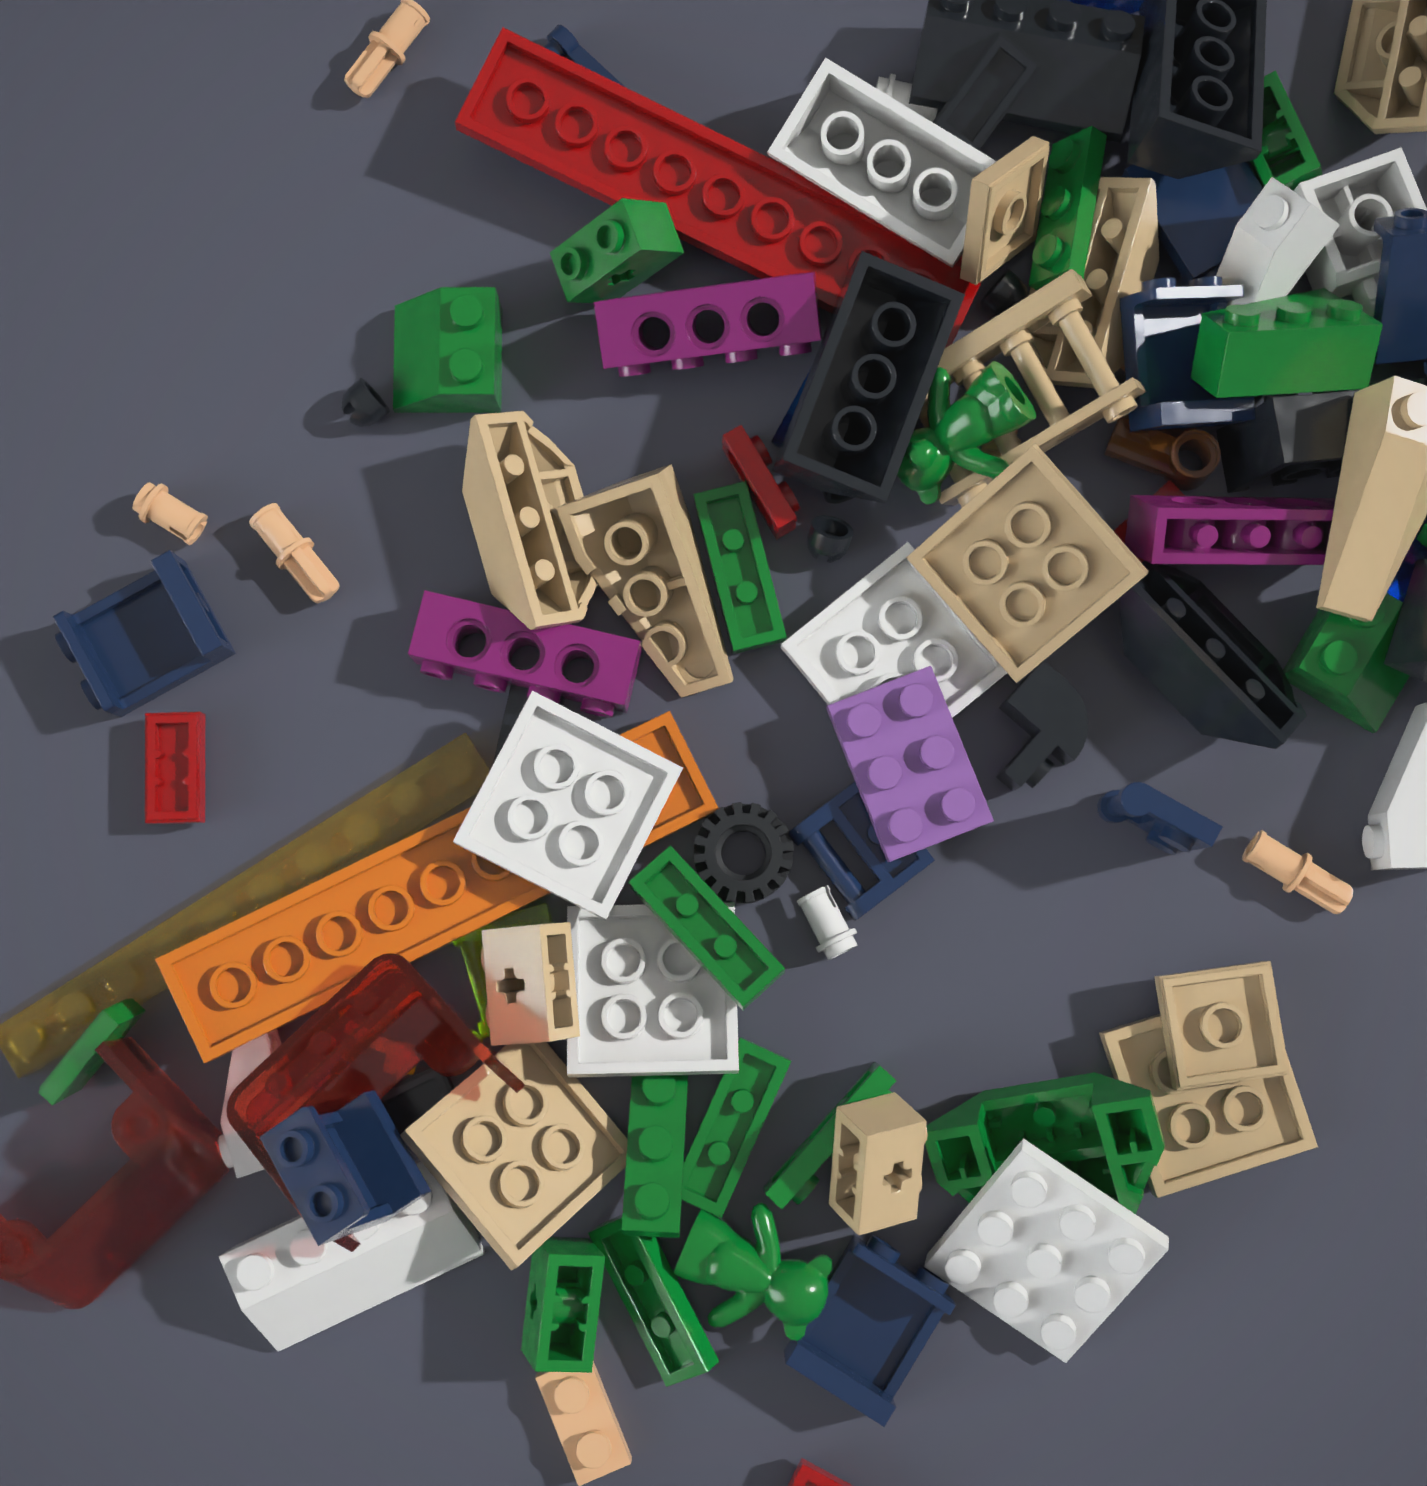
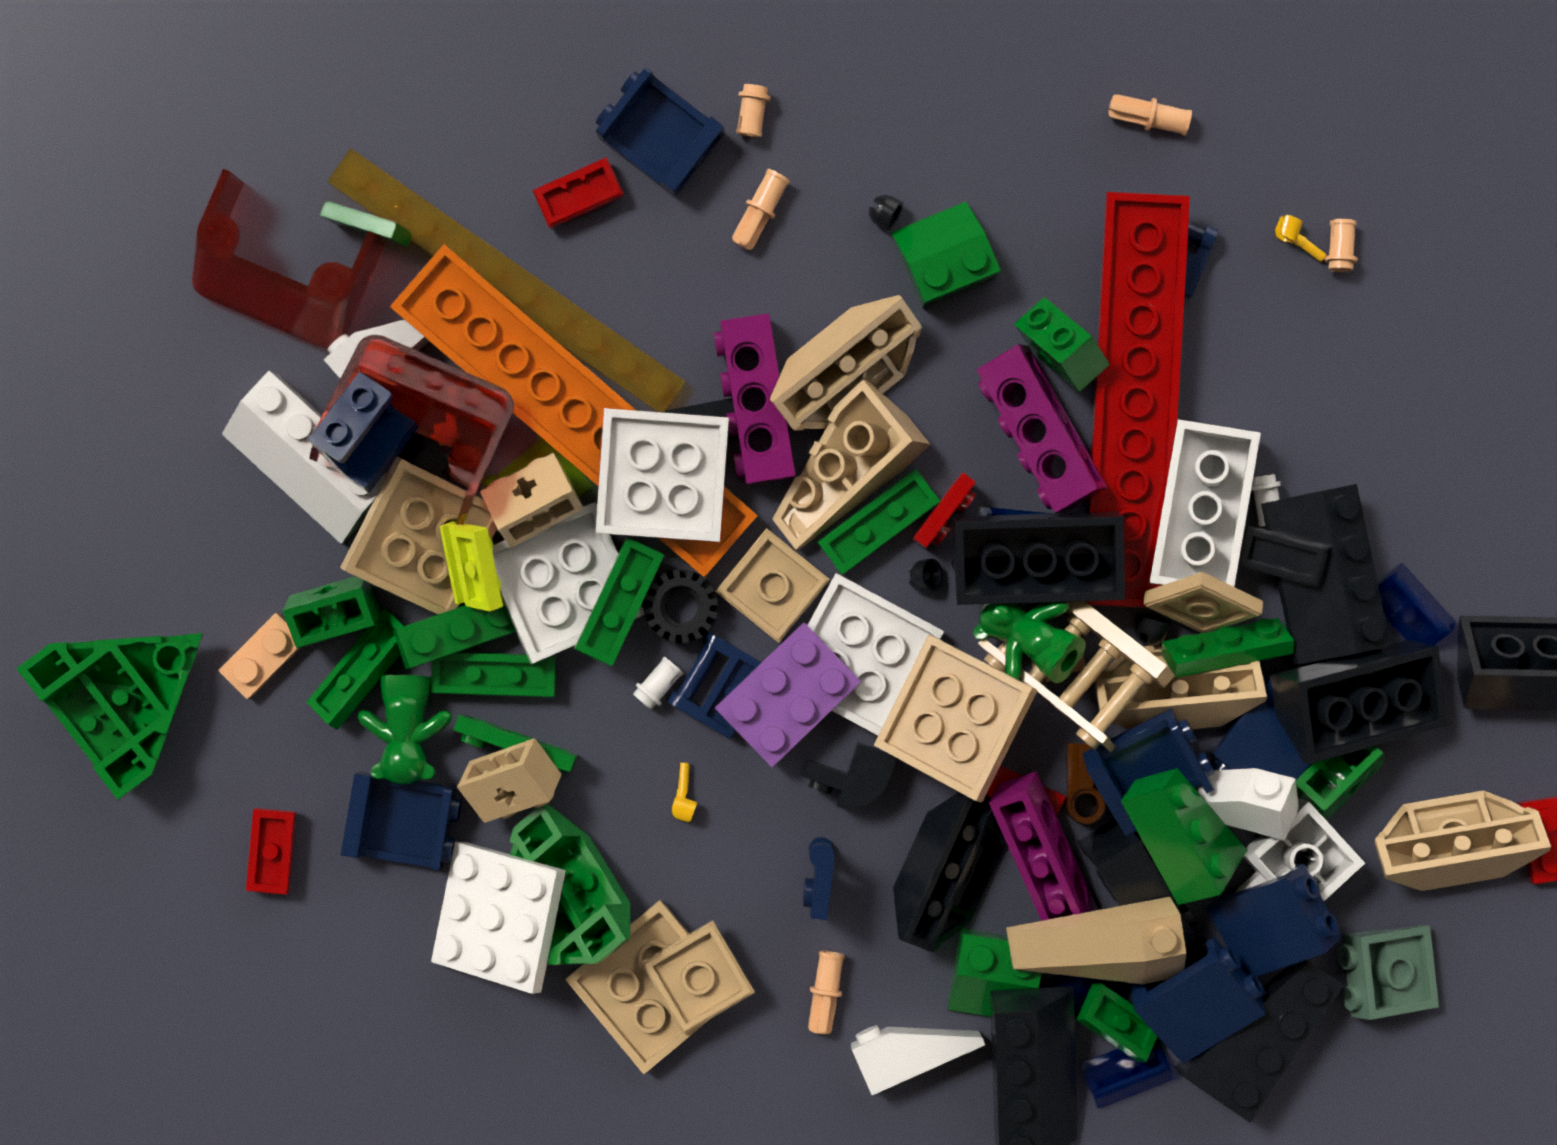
camera: 70 degrees right, 5 degrees up
(581, 1096) = (471, 566): none -> neon yellow plate
(763, 730) = (772, 585): none -> tan tile
(995, 957) = (682, 807): none -> yellow hand

